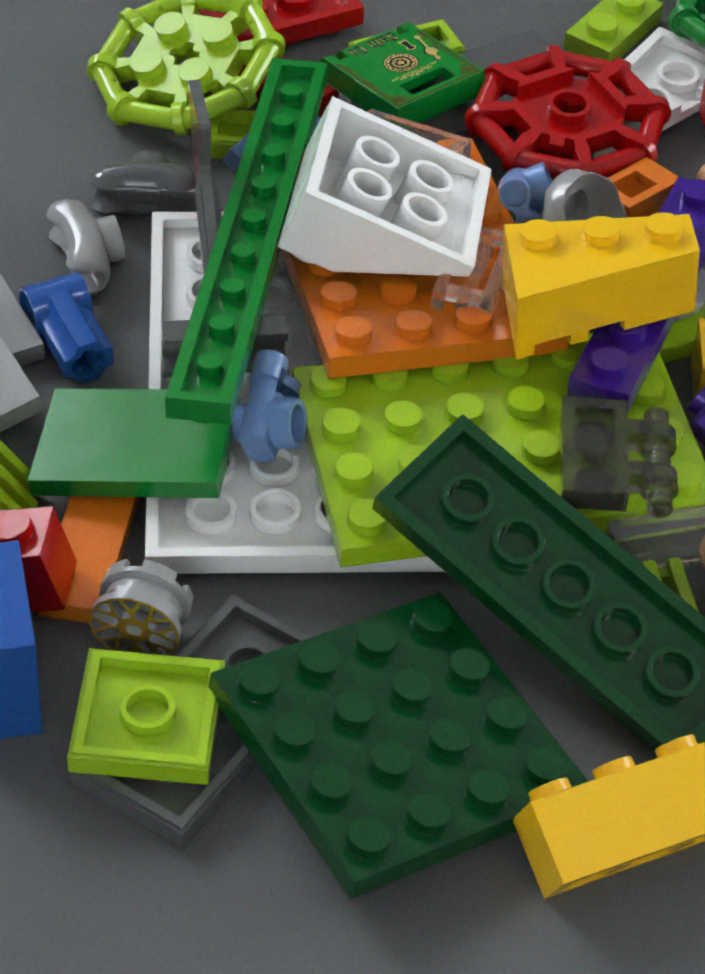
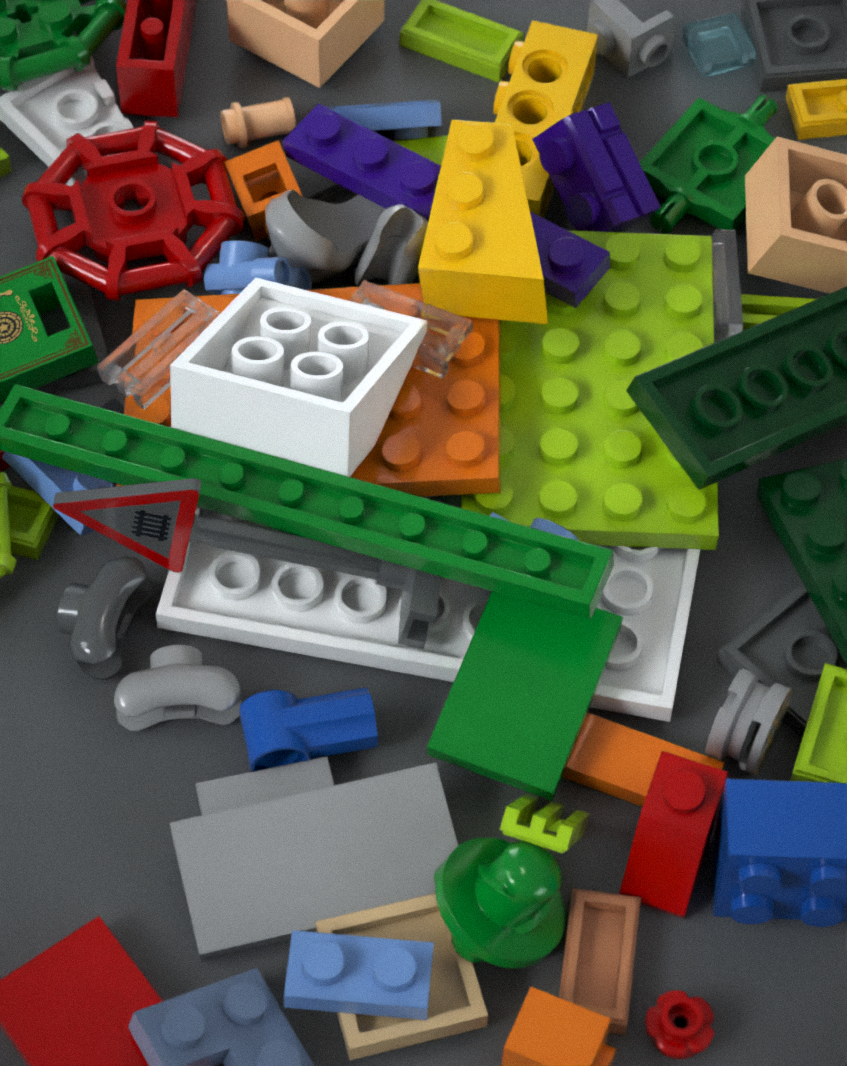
camera: 75 degrees left, 10 degrees up
(596, 462) = (673, 288): clear smoke plate -> none

